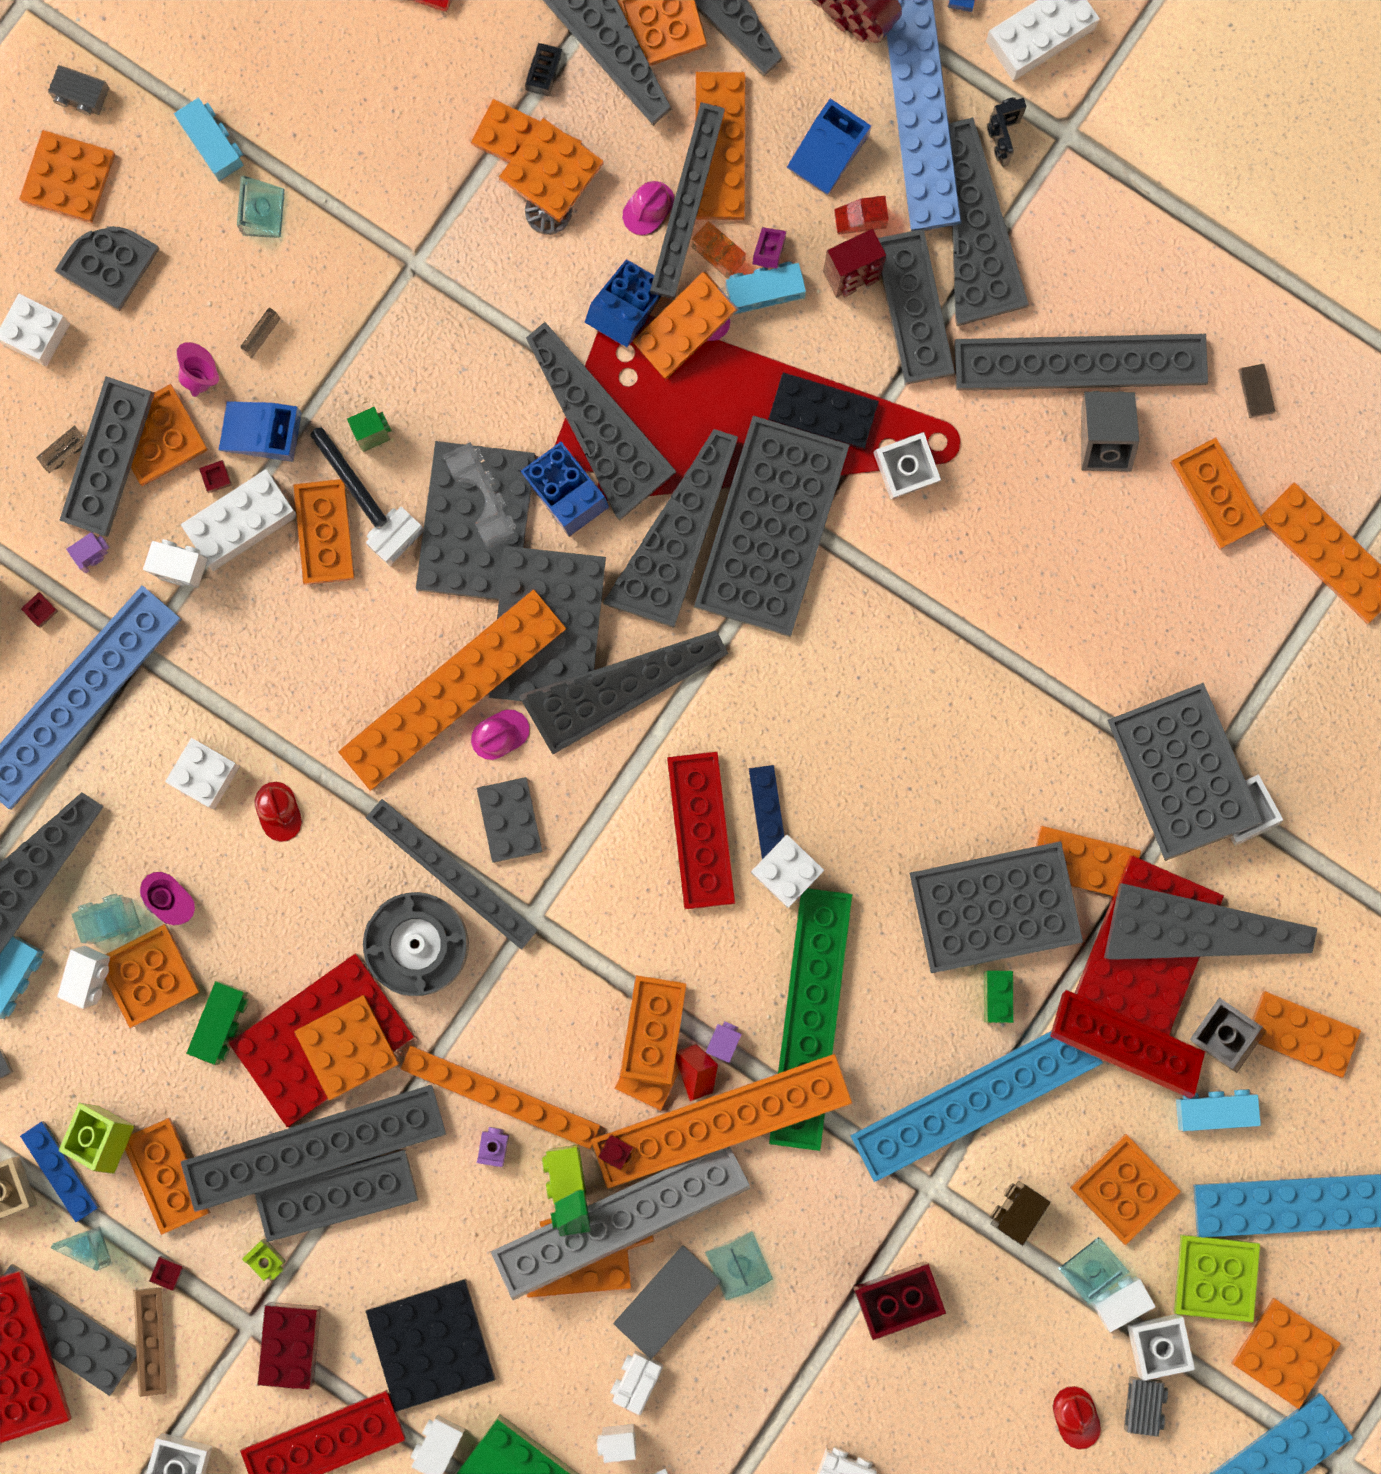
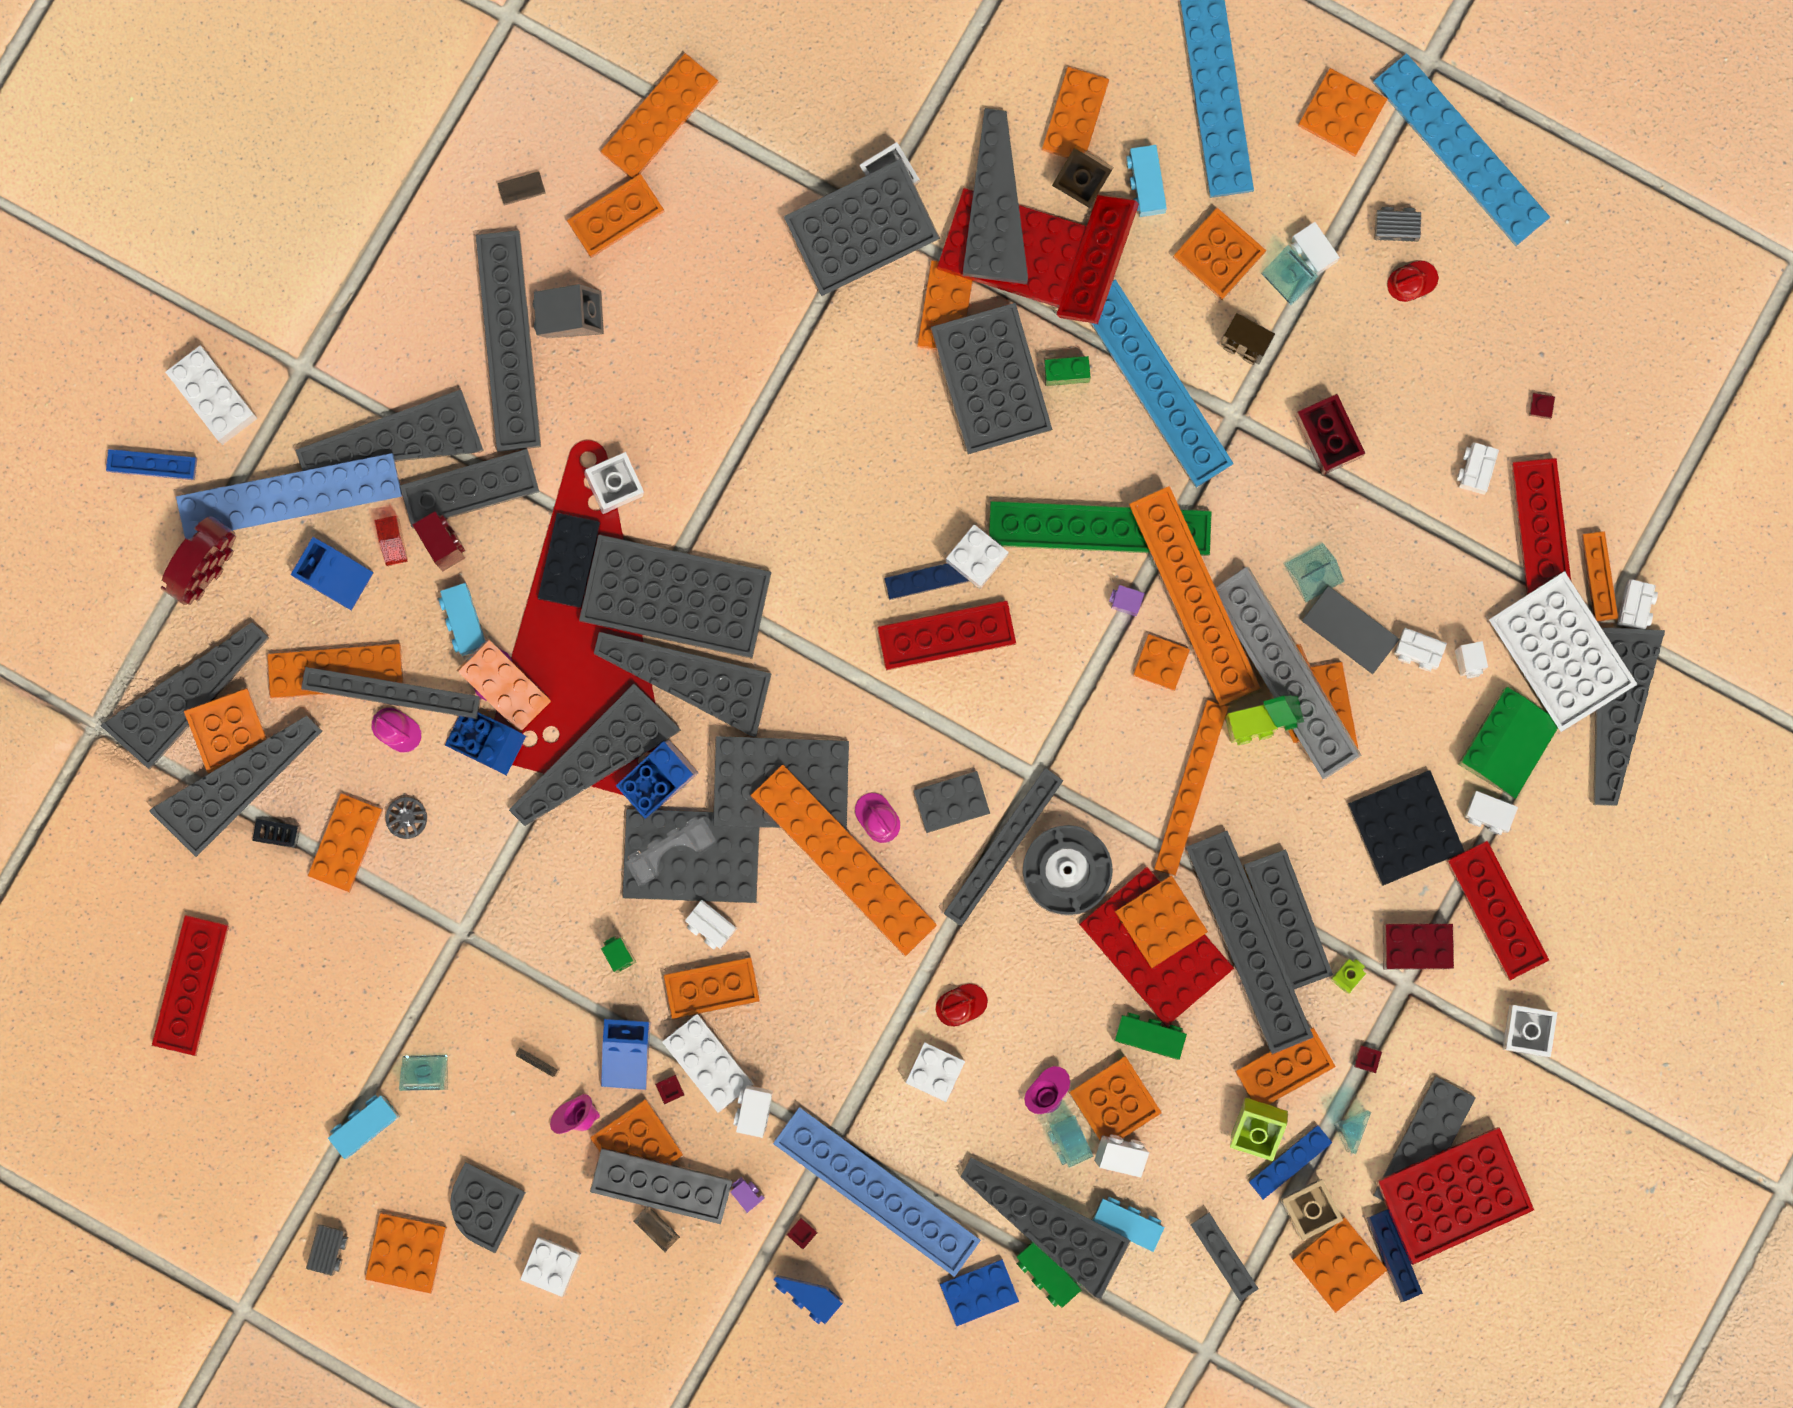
camera: 90 degrees left, 0 degrees up
(149, 1341) = (1426, 1067): medium nougat plate -> none
(348, 477) = (662, 970): black axle -> none
(497, 1157) = (1243, 793): medium lavender brick -> none
(551, 170) = (371, 816): orange plate -> none
(591, 700) = (843, 739): dark grey wing -> none
(615, 1152) = (1228, 683): dark red plate -> none
(653, 1030) = (1122, 660): orange plate -> none
(697, 1071) = (1153, 620): red slope -> none
(718, 250) = (432, 663): clear orange brick -> none
(769, 247) = (427, 618): magenta plate -> none
(1005, 115) = (305, 427): black bracket -> none
(1160, 1347) = (1347, 215): white brick -> none
(1216, 1278) = (1286, 172): lime plate -> none

